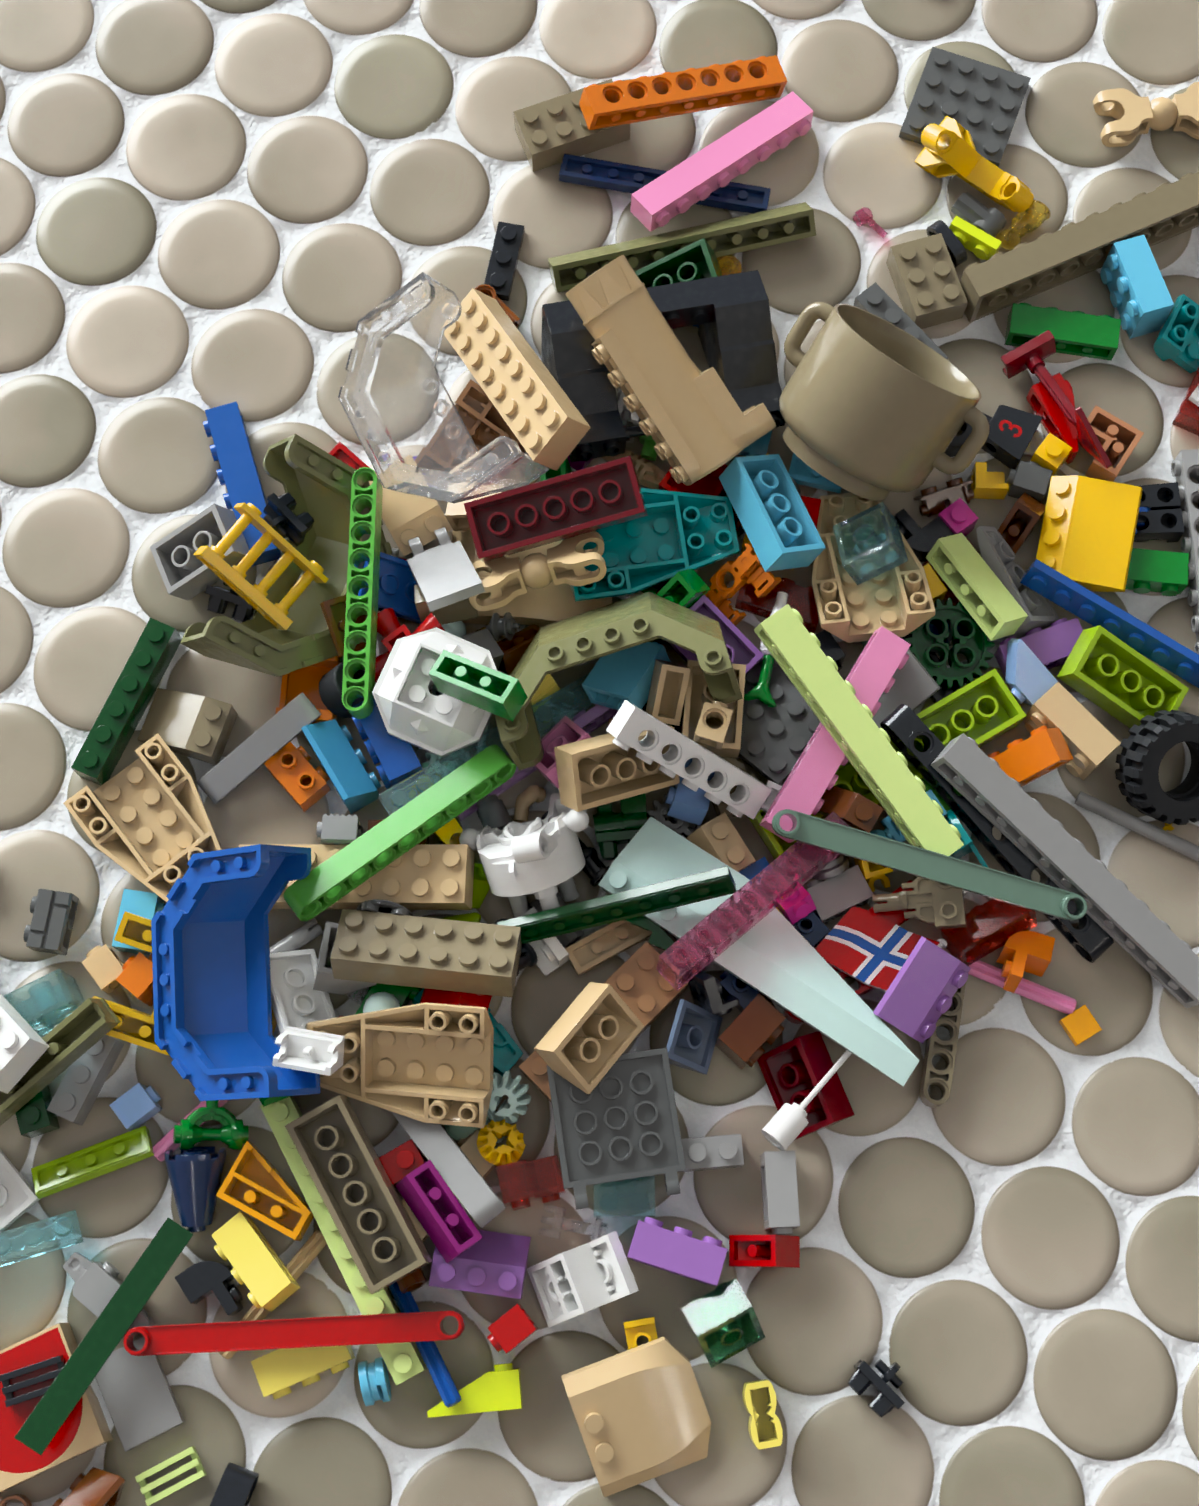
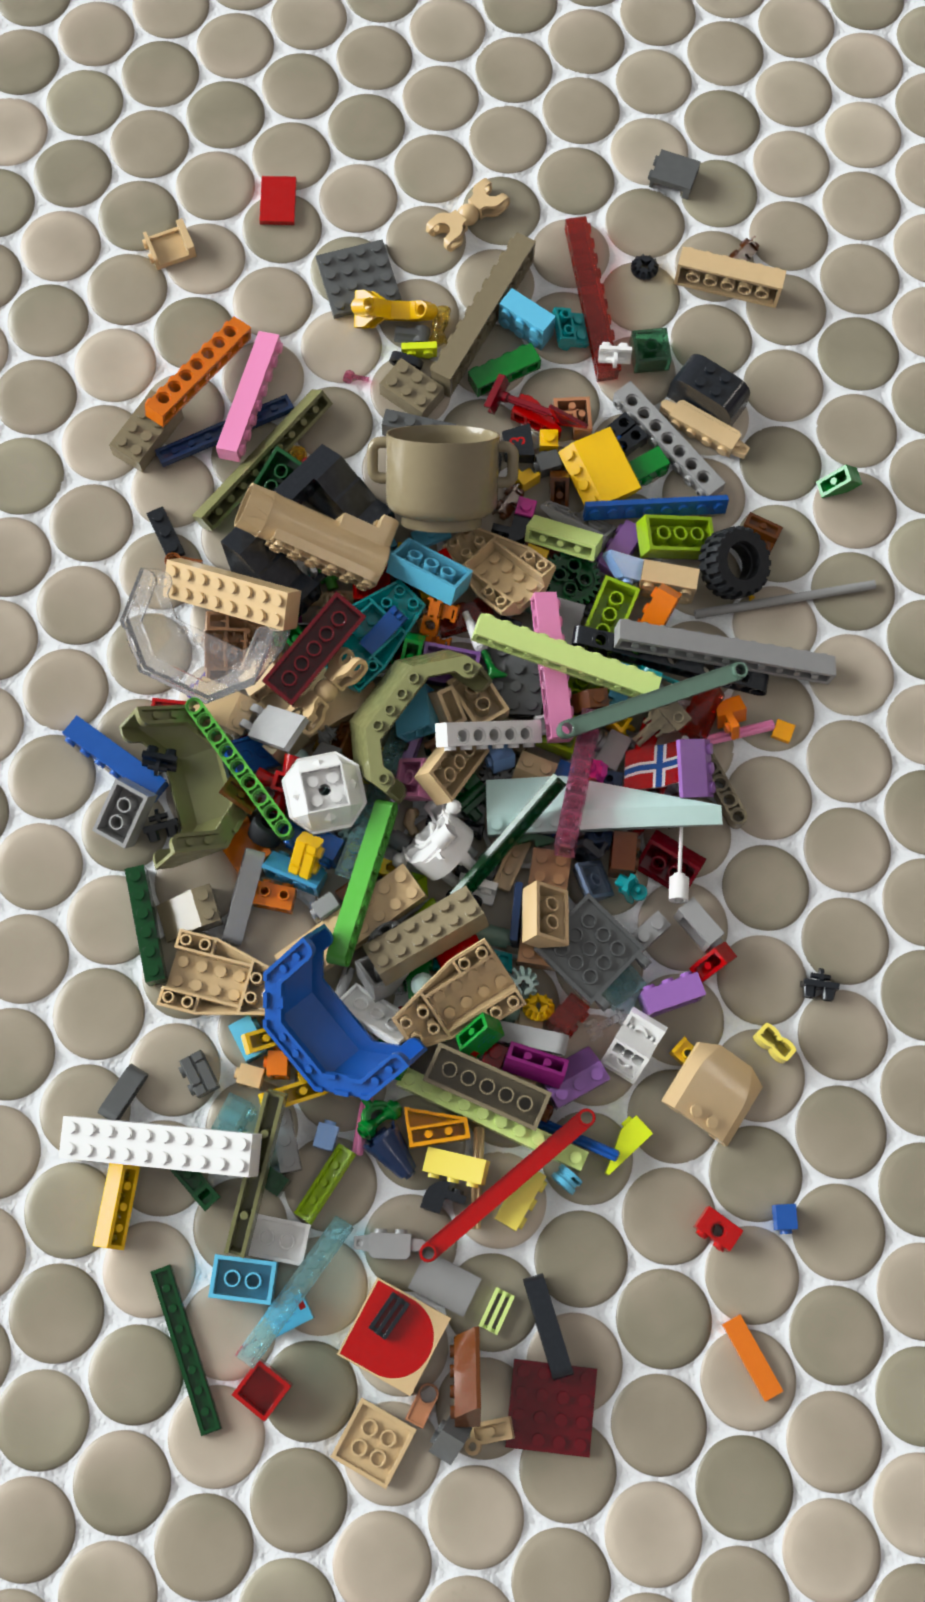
camera: 40 degrees left, 0 degrees up
(103, 1337) = (408, 1264): dark green tile -> none
(235, 576) = (159, 810): yellow fence -> none
(309, 1051) = (405, 1031): white hinge -> none
(361, 752) = (306, 854): none -> yellow brick
(397, 1124) = (479, 1035): none -> green brick
(478, 685) = (351, 770): green brick -> none
(511, 1329) = (617, 1097): red brick -> none
(519, 1015) = (495, 936): none -> sand green brick
(555, 1011) = (516, 915): none -> dark blue tile
(663, 545) = (383, 630): none -> blue hinge
(713, 737) = (491, 713): tan brick -> none
(723, 1322) = (721, 1011): clear green brick -> none
(729, 1081) = (631, 888): none -> teal hips
(870, 543) = (492, 553): clear light blue brick -> none

